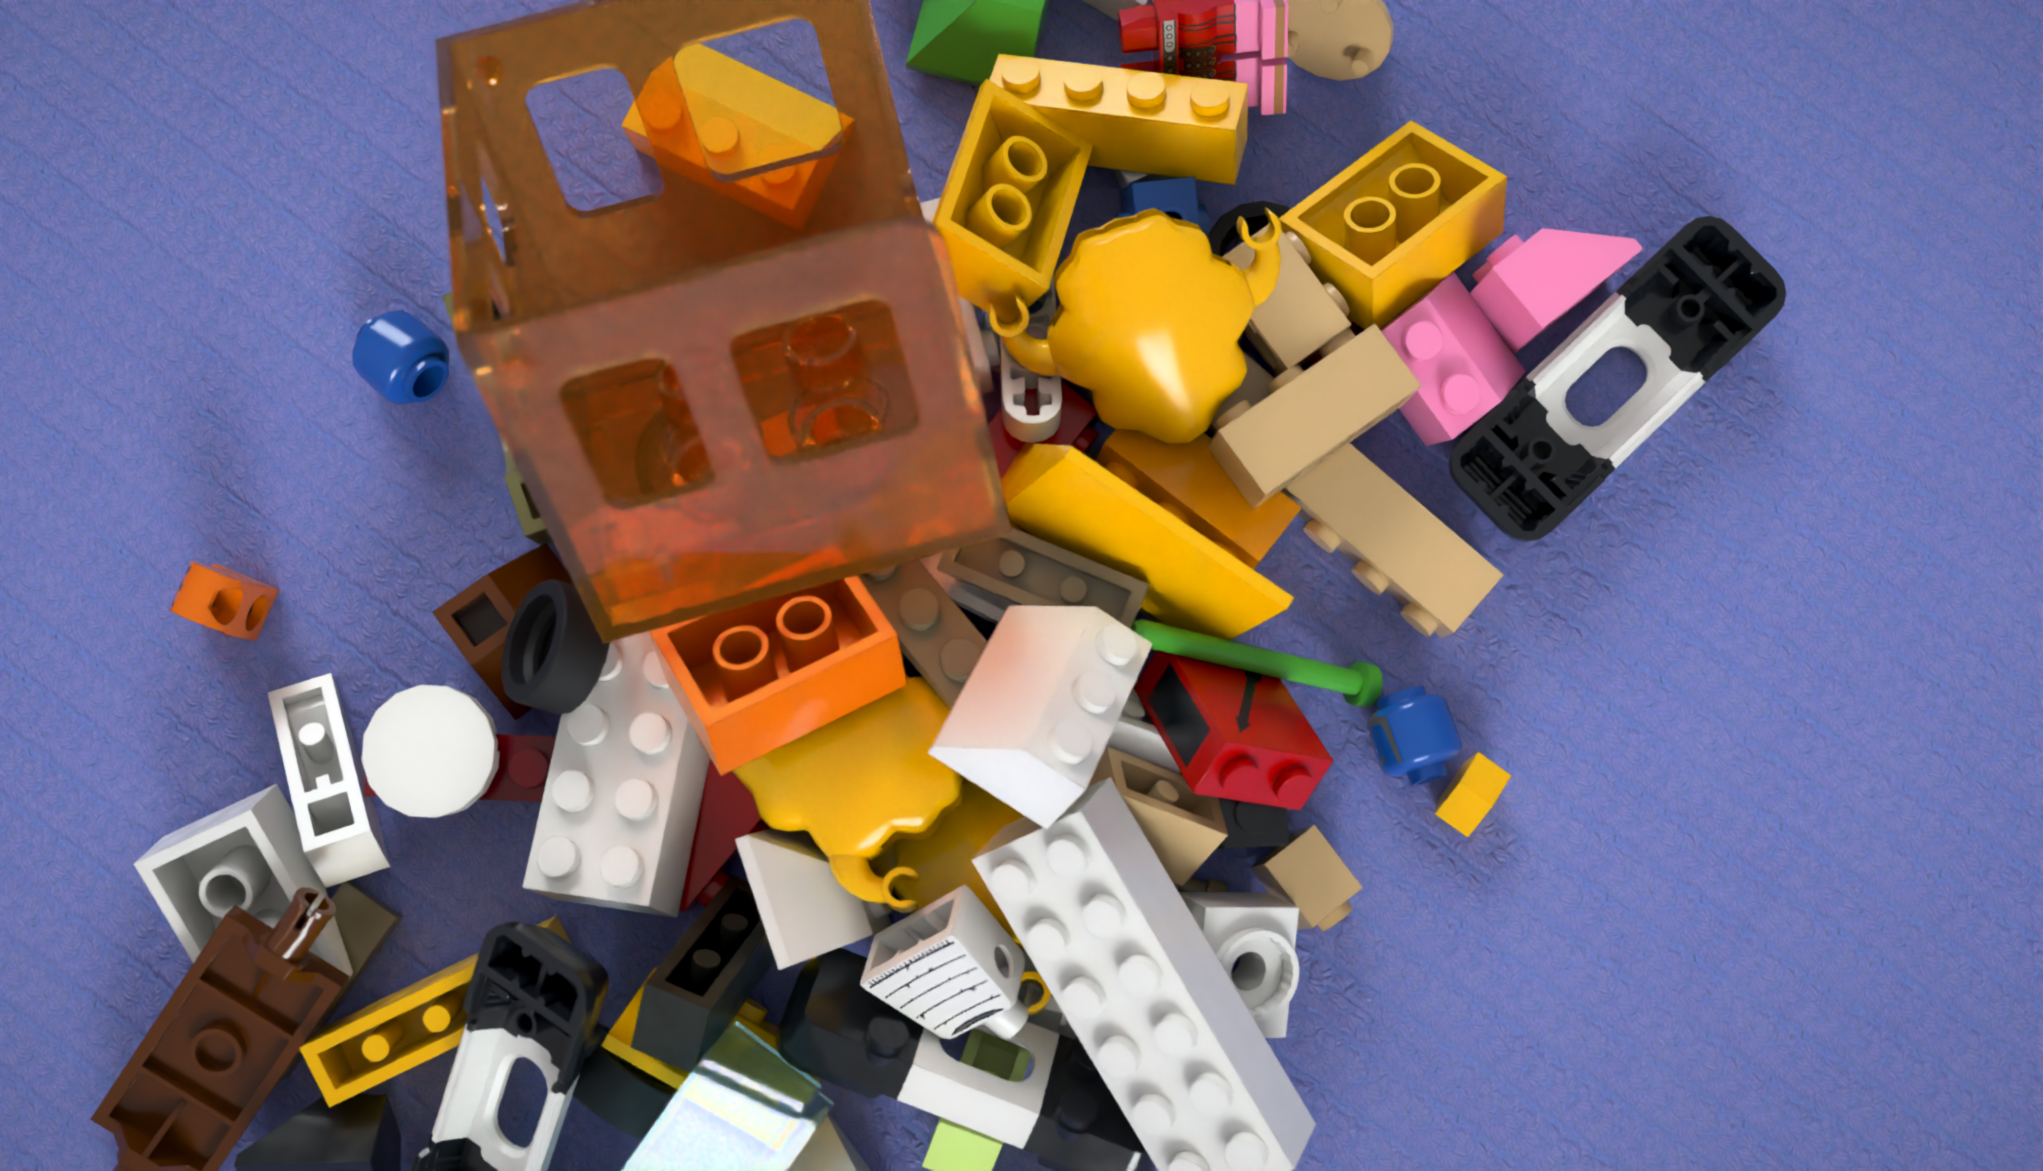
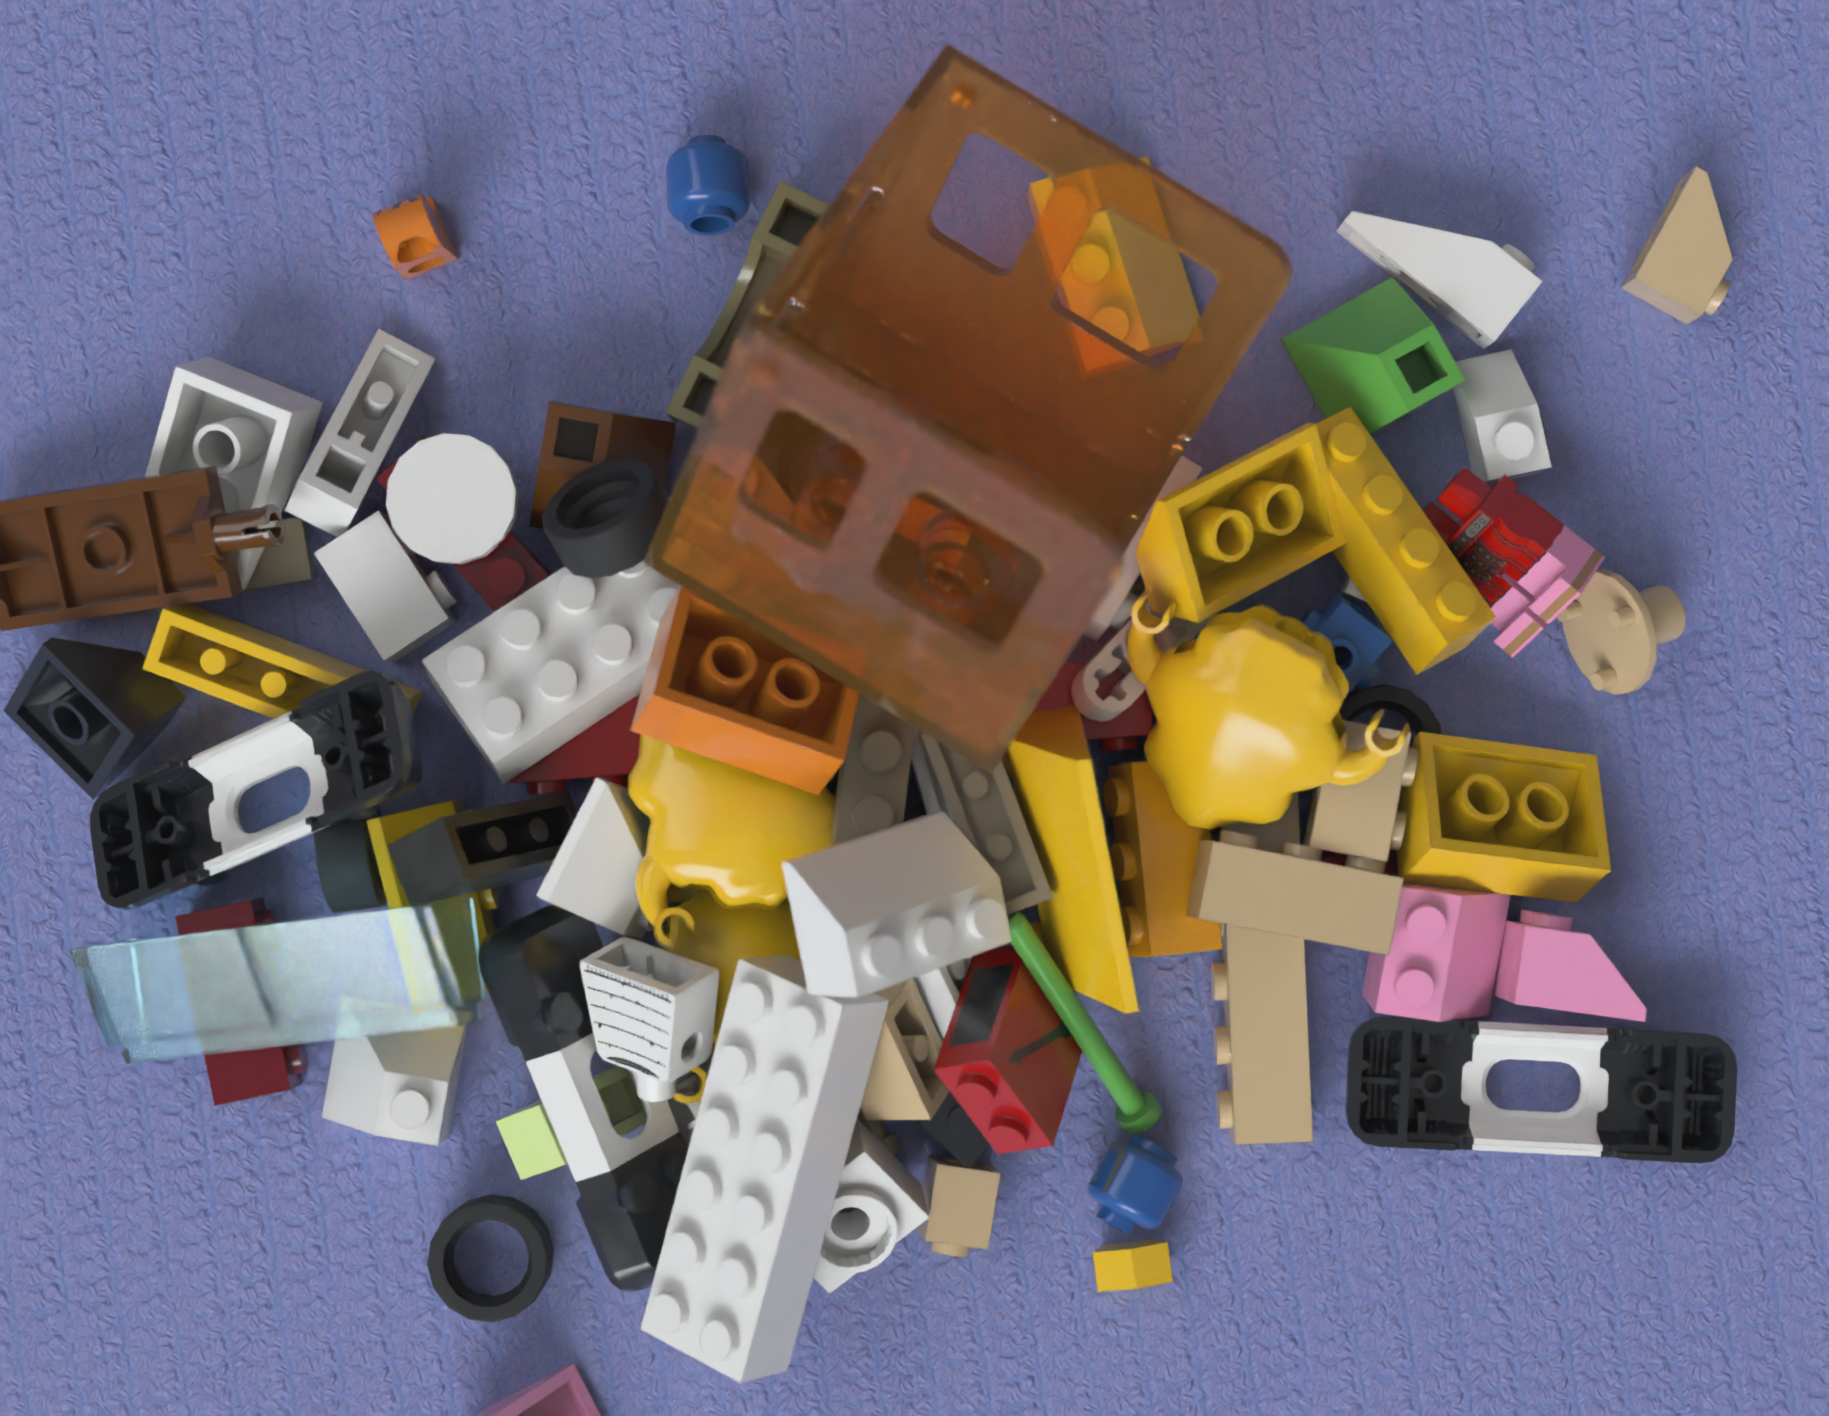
camera: 50 degrees right, 5 degrees up
(455, 865) = (387, 587): none -> white brick

